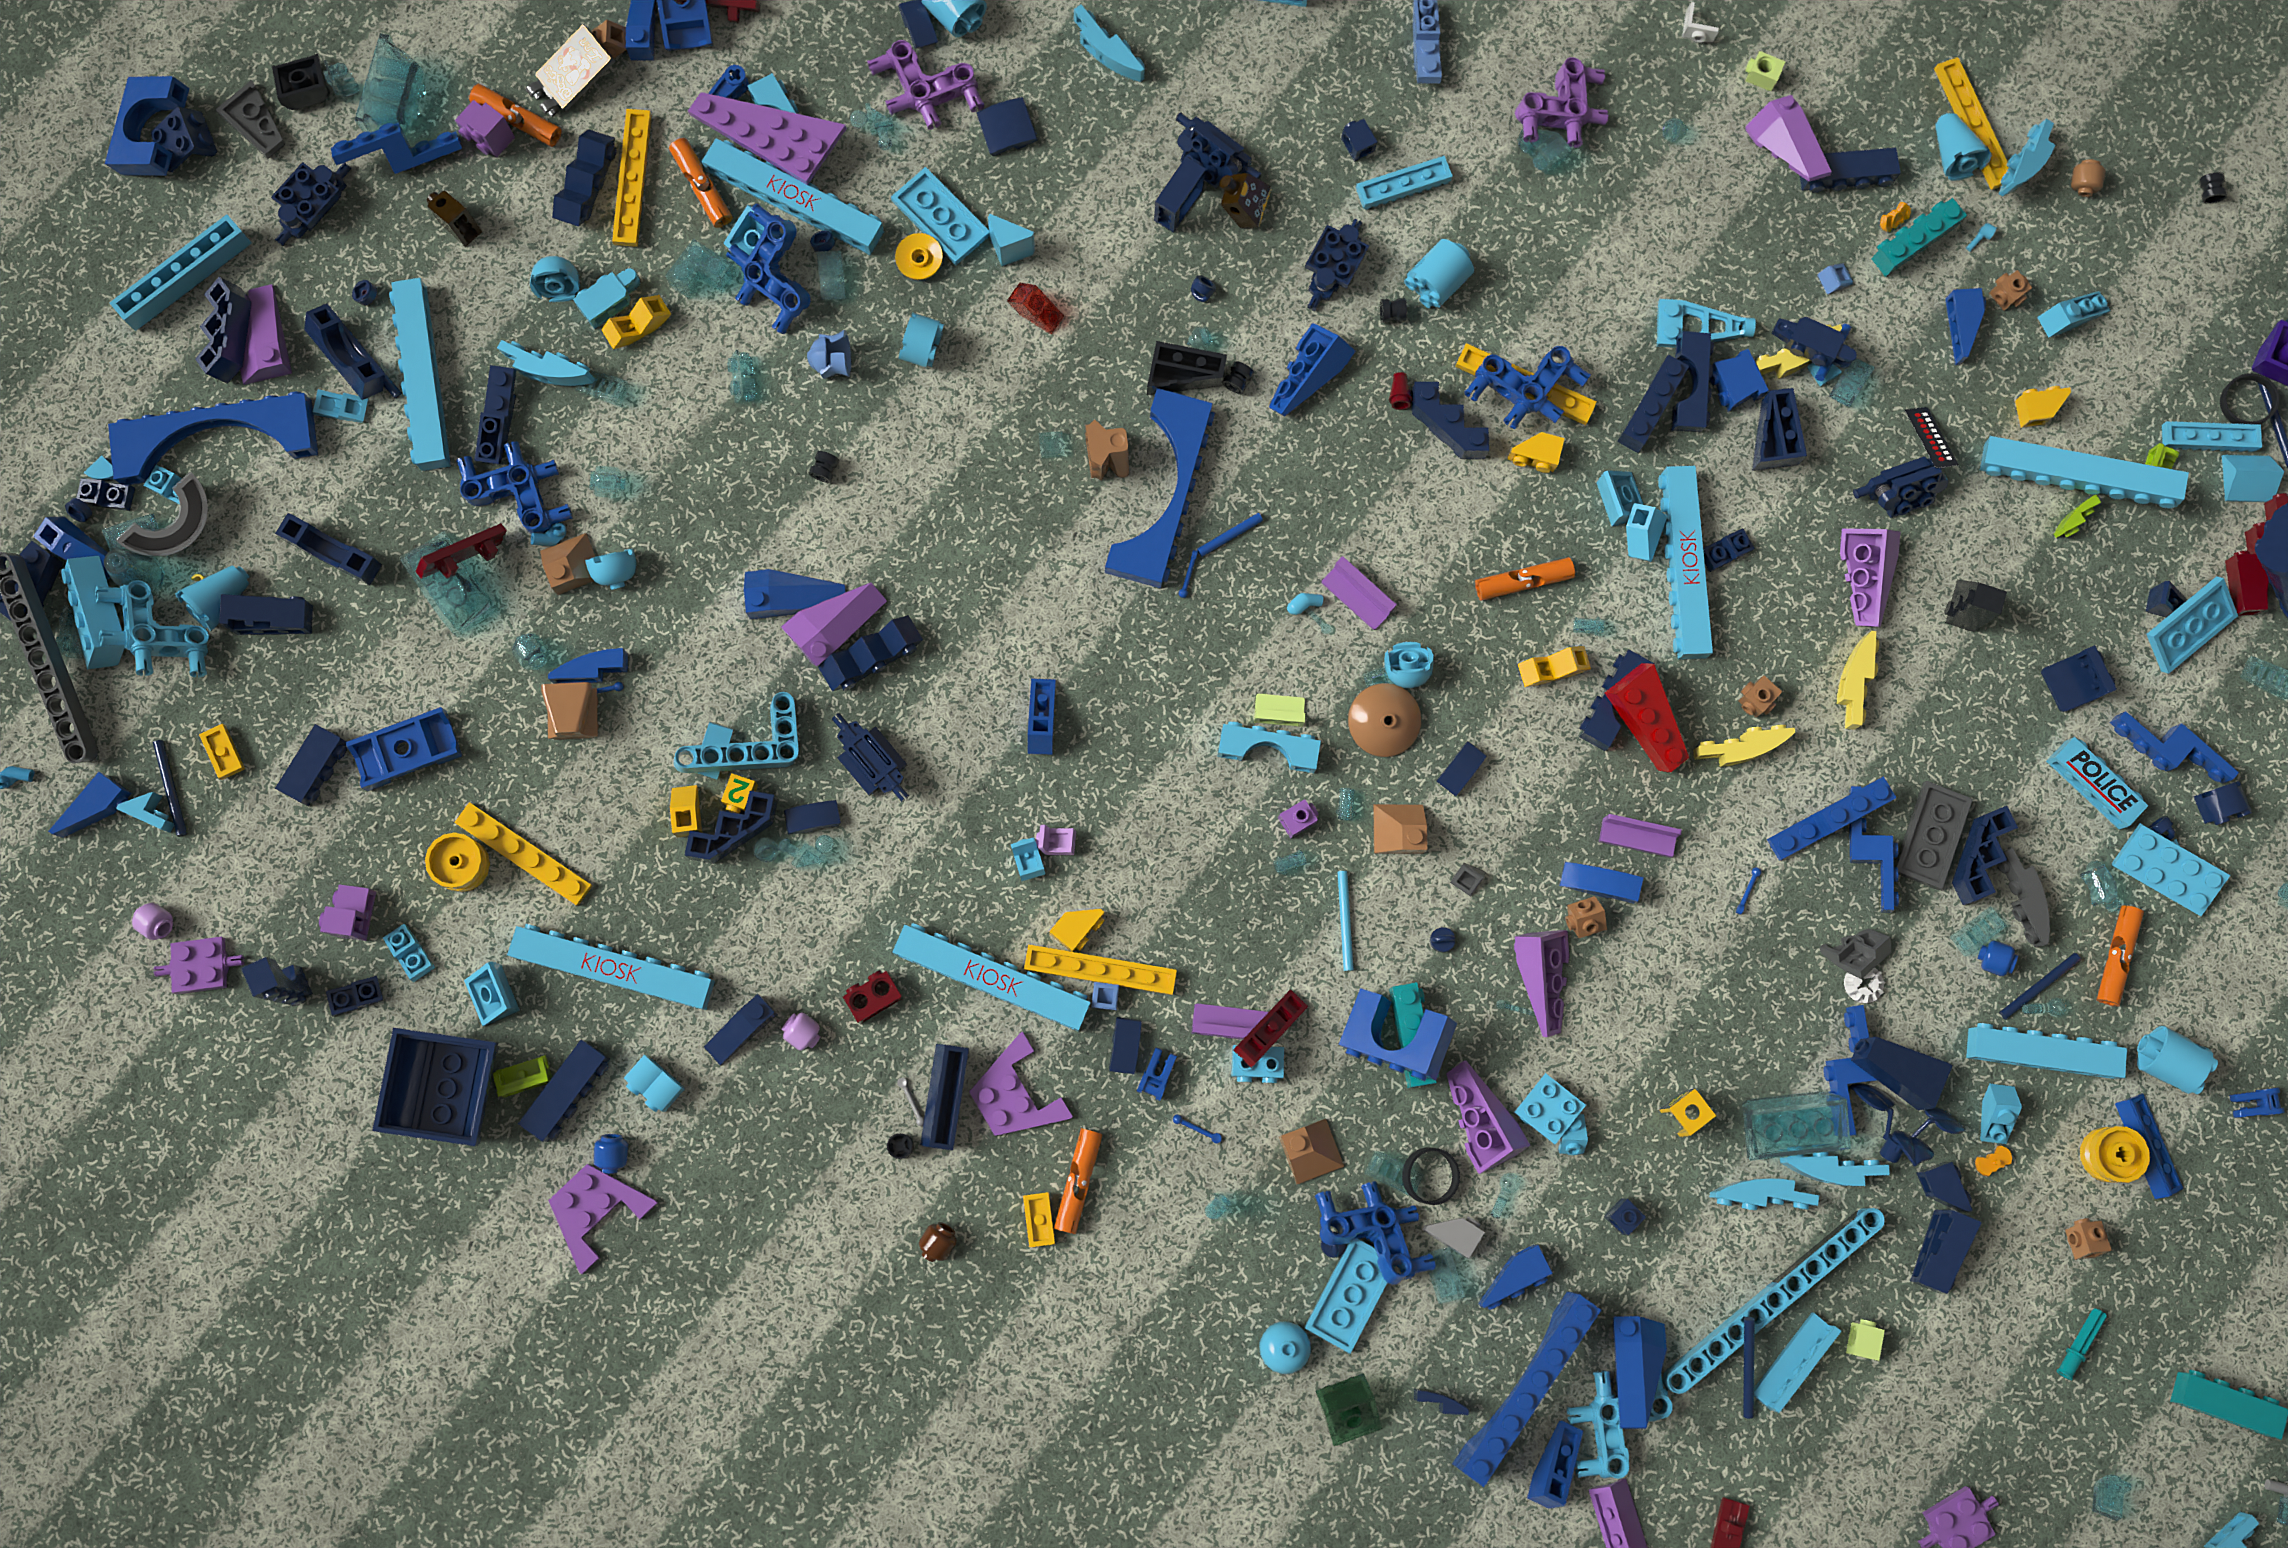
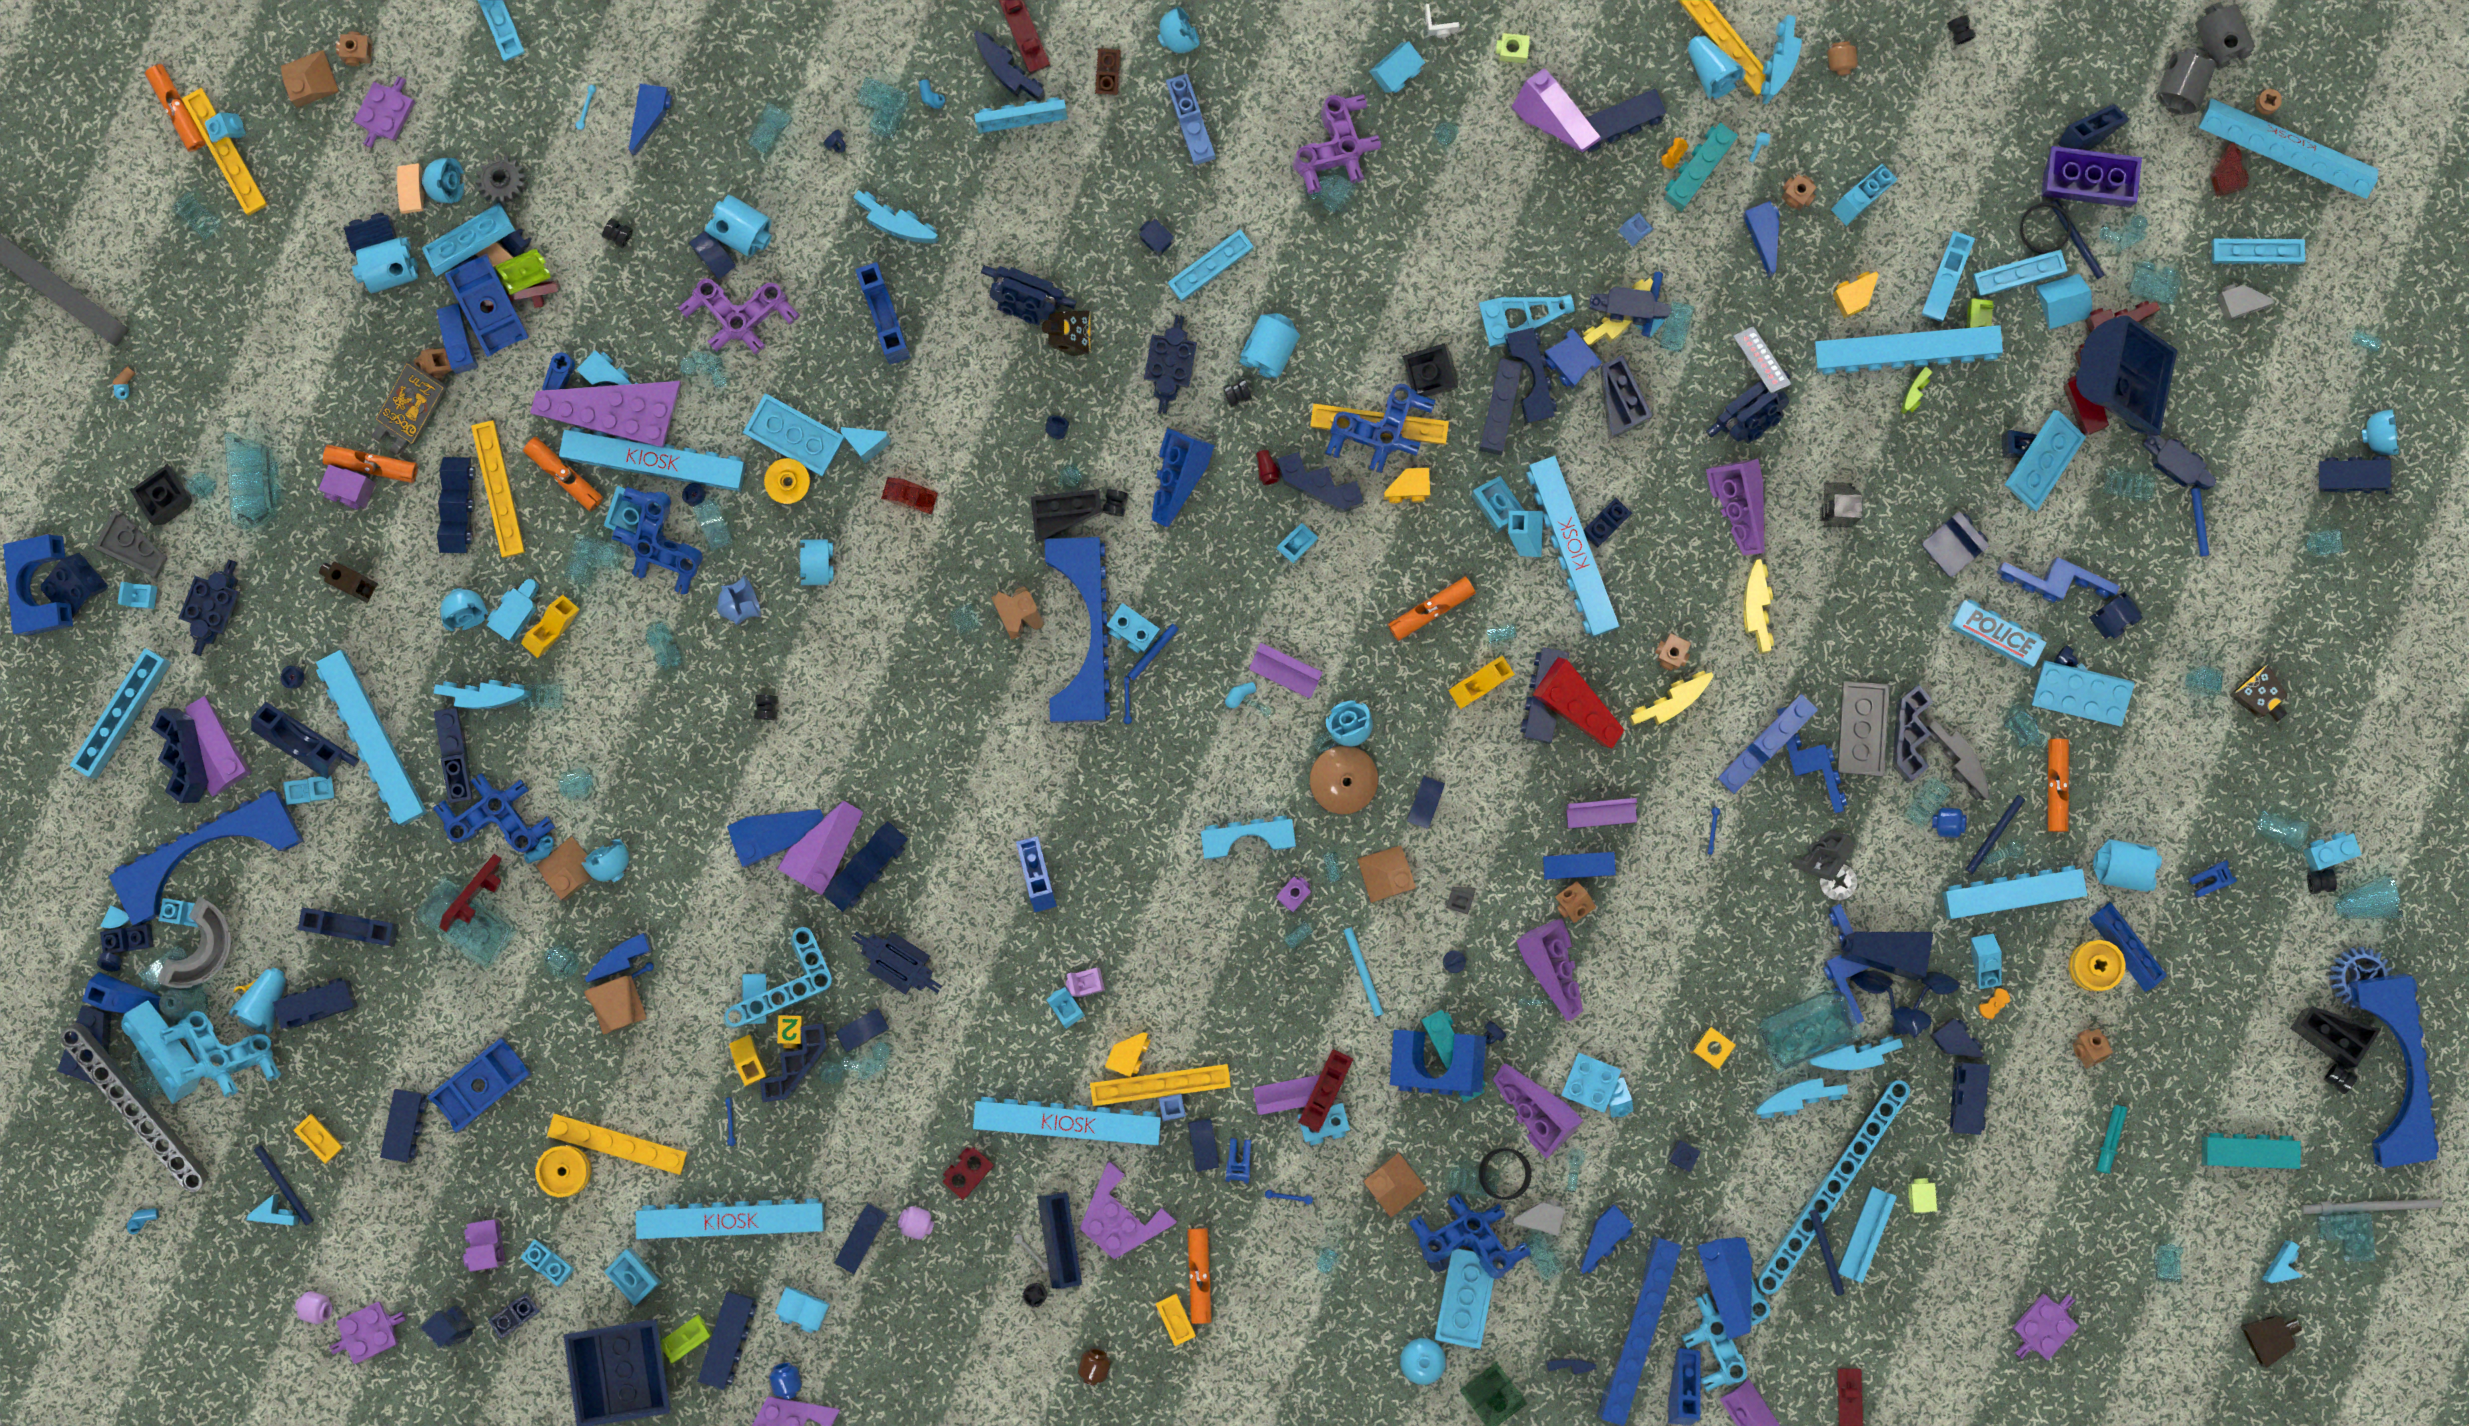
camera: 10 degrees left, 5 degrees up
(93, 804) = (225, 1218): blue slope -> none
(241, 168) = (137, 595): none -> medium azure bracket
(396, 147) = (274, 533): blue bracket -> none
(640, 888) = (729, 1102): none -> blue hinge
(1007, 126) = (827, 328): dark blue slope -> none
(1067, 123) = (883, 313): none -> blue arch
(1179, 194) = (1008, 346): dark blue window -> none
(1217, 504) = (1133, 629): none -> medium azure brick
(1279, 710) = (1247, 799): yellowish green panel -> none
(1407, 472) = (1297, 543): none -> medium azure slope
(1465, 1024) = (1494, 1030): none -> dark blue tile
(1594, 347) = (1431, 370): none -> black slope
(1645, 52) = (1397, 67): none -> medium azure brick
(2139, 416) = (1948, 276): none -> medium azure slope

